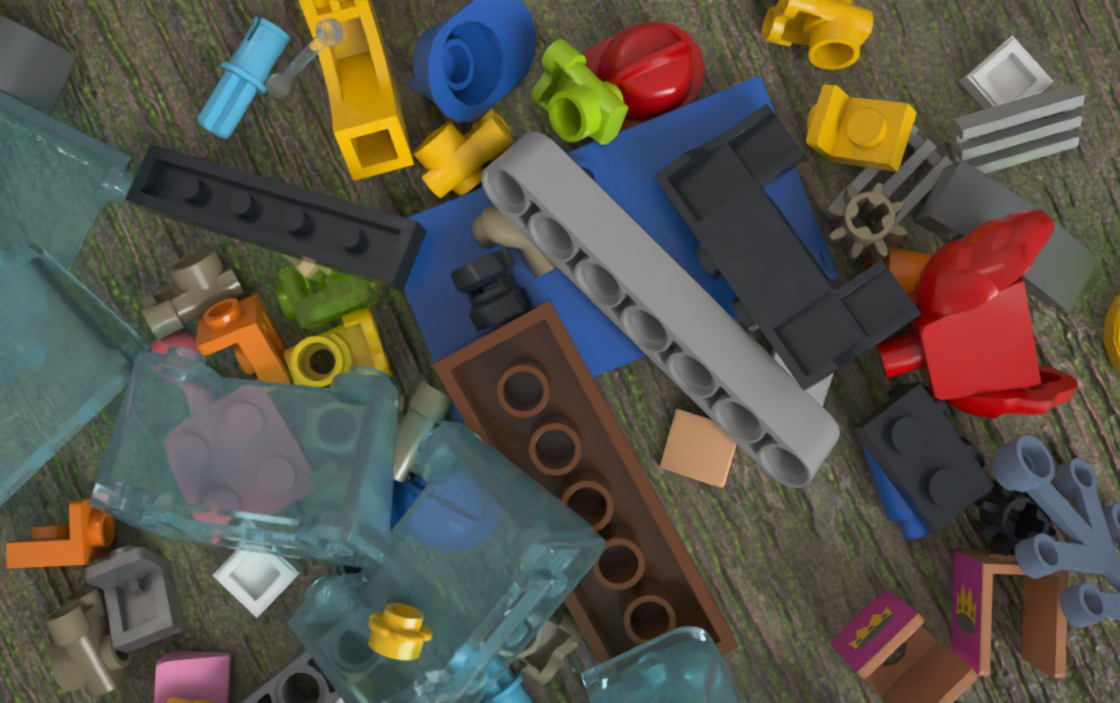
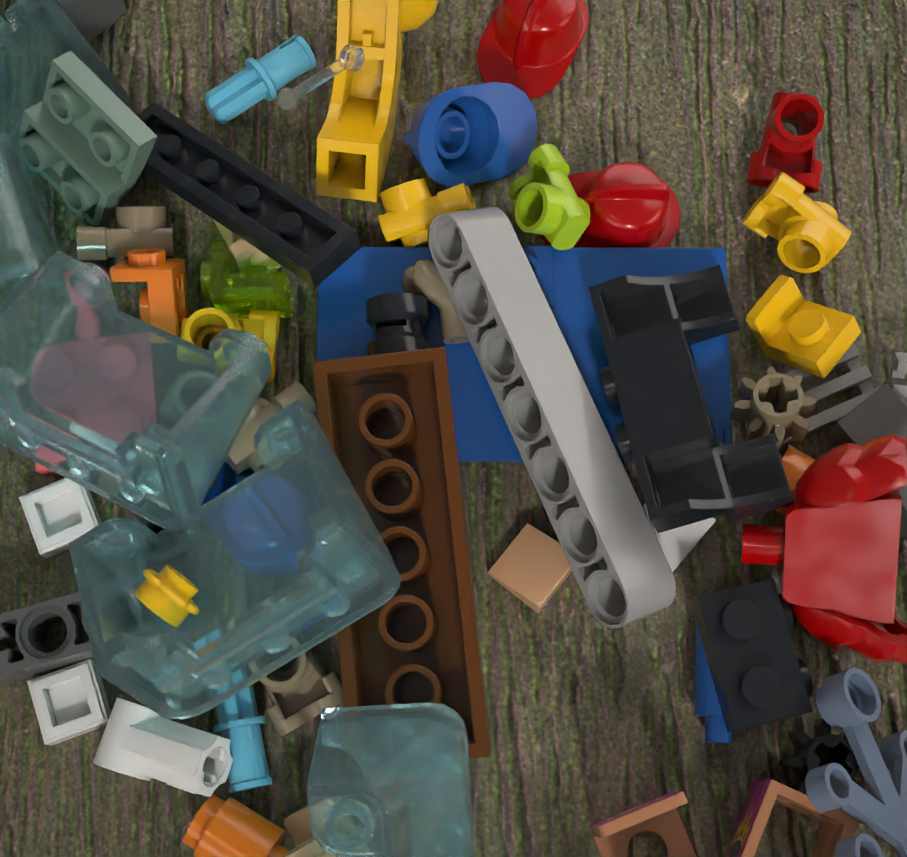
camera: 25 degrees right, 15 degrees down
(104, 218) = (84, 141): none -> sand green slope

